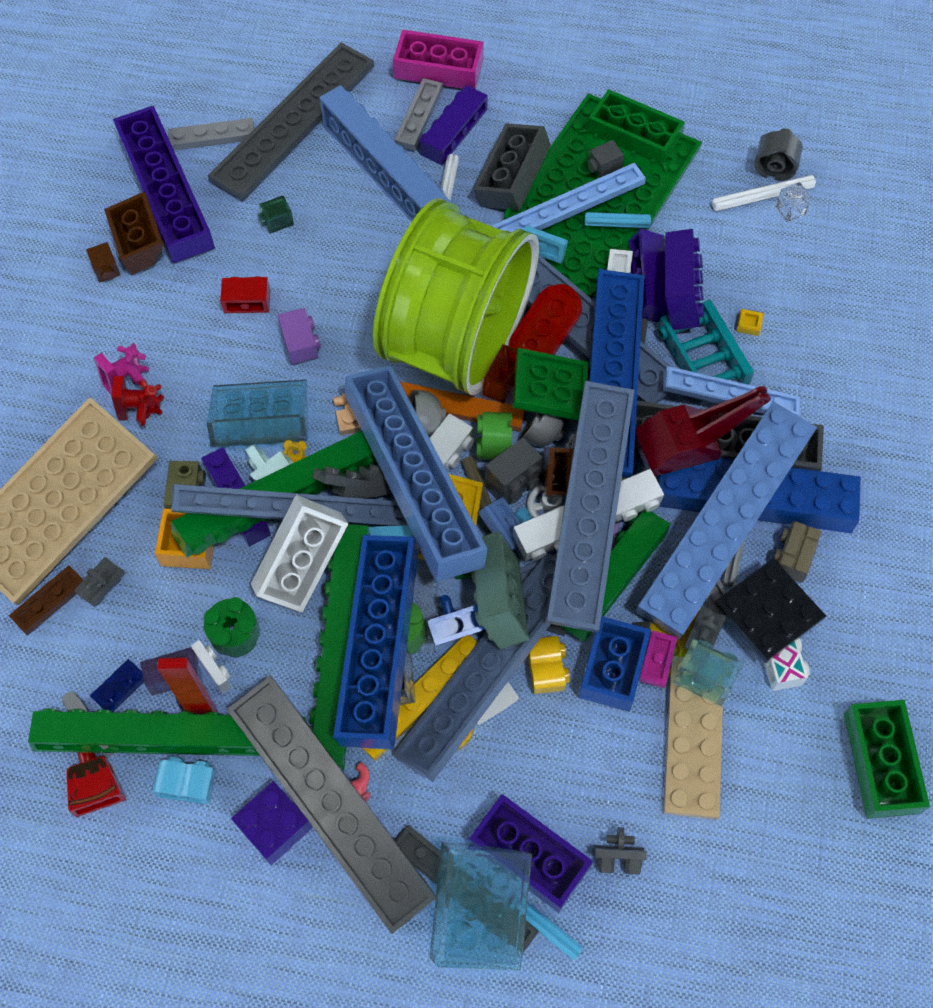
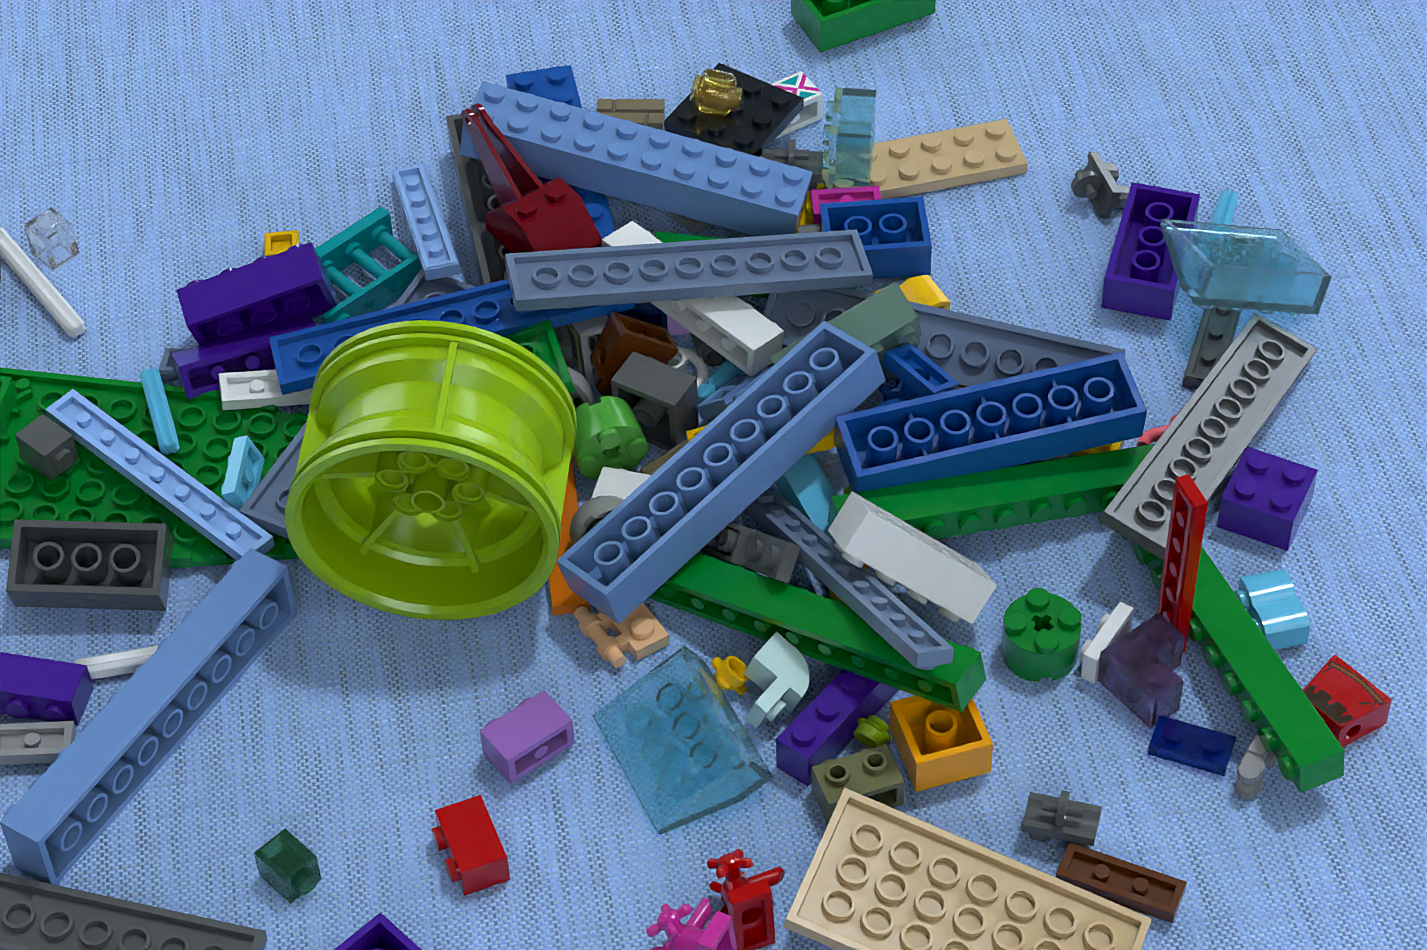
camera: 110 degrees left, 15 degrees down
(776, 588) = (715, 92): none -> clear yellow head

